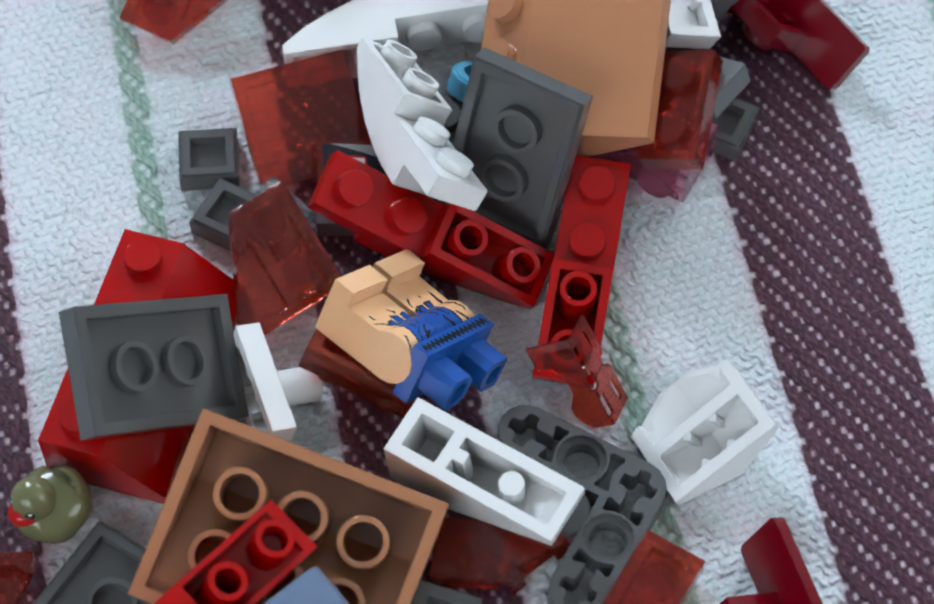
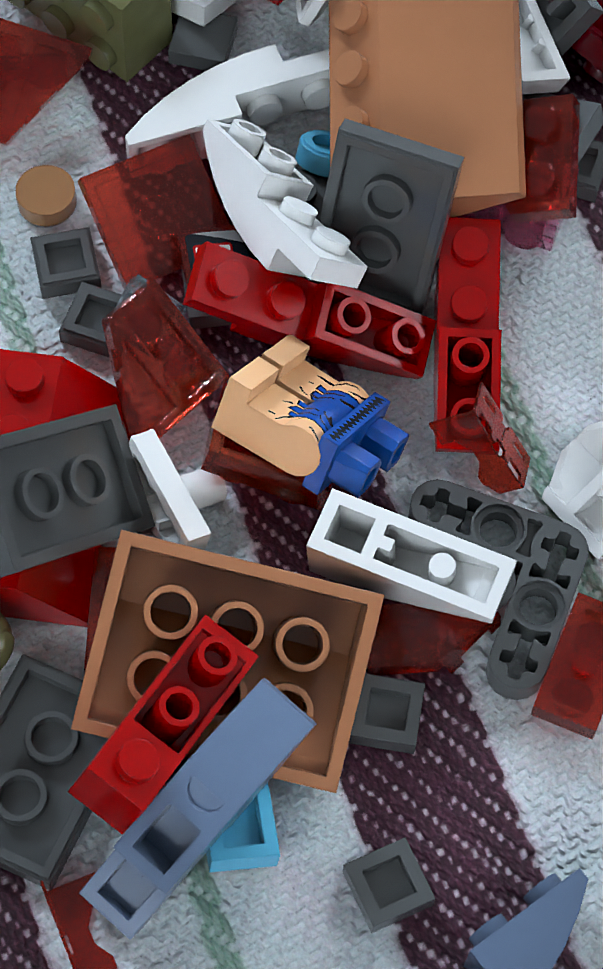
camera: 10 degrees left, 5 degrees up
(201, 94) = (46, 195): none -> medium nougat tile

